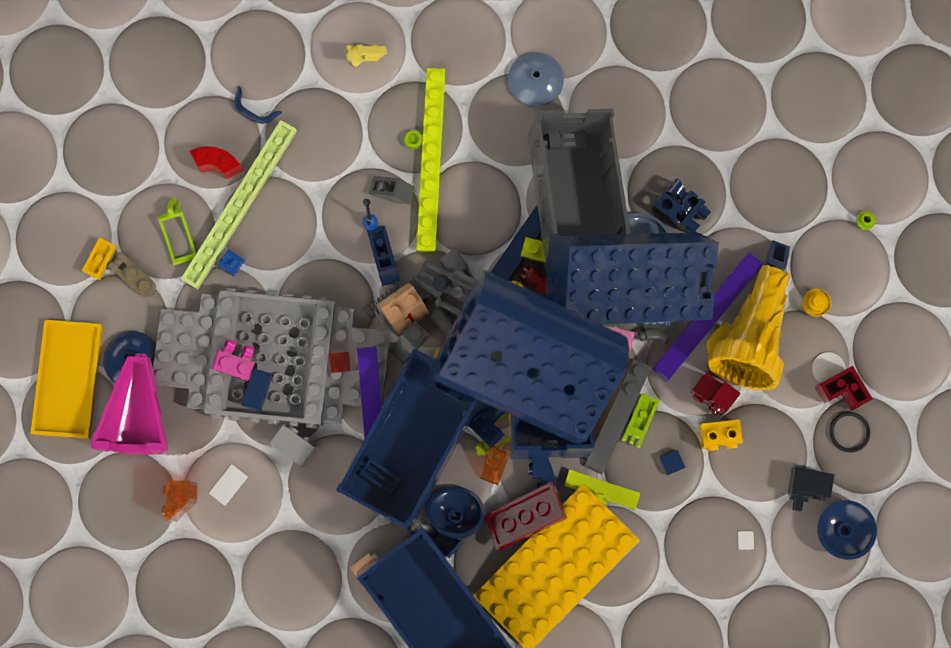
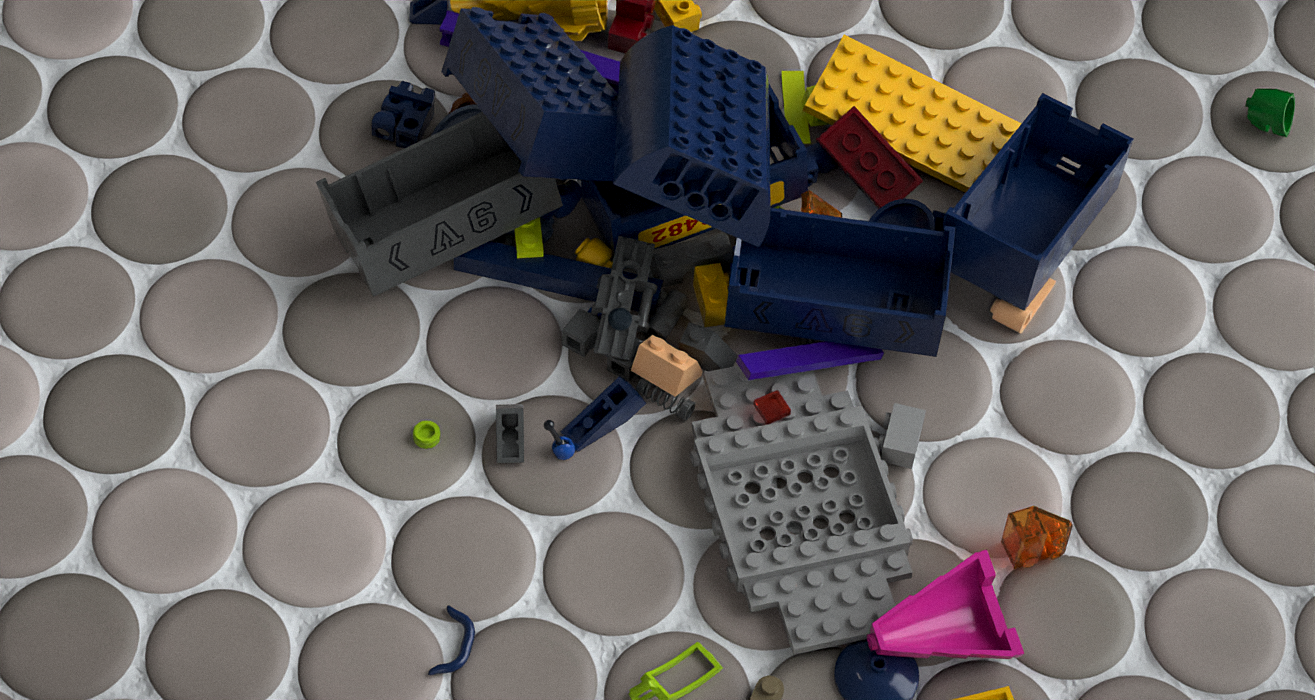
camera: 115 degrees left, 25 degrees down
(216, 159) = (553, 662): red brick -> none
(228, 485) = (985, 504): white sticker -> none
(231, 262) = (689, 596): blue tile -> none
(235, 366) = (827, 522): dark pink plate -> none
(239, 205) = (603, 610): yellowish green plate -> none
(257, 390) = (851, 489): dark blue tile -> none
(361, 53) = (329, 513): light yellow plate -> none
(431, 160) = (445, 405): neon yellow plate -> none
(532, 90) = (286, 331): sand blue dish -> none
(533, 276) = (567, 229): red hinge -> none
(672, 462) = (733, 43): dark blue tile -> none

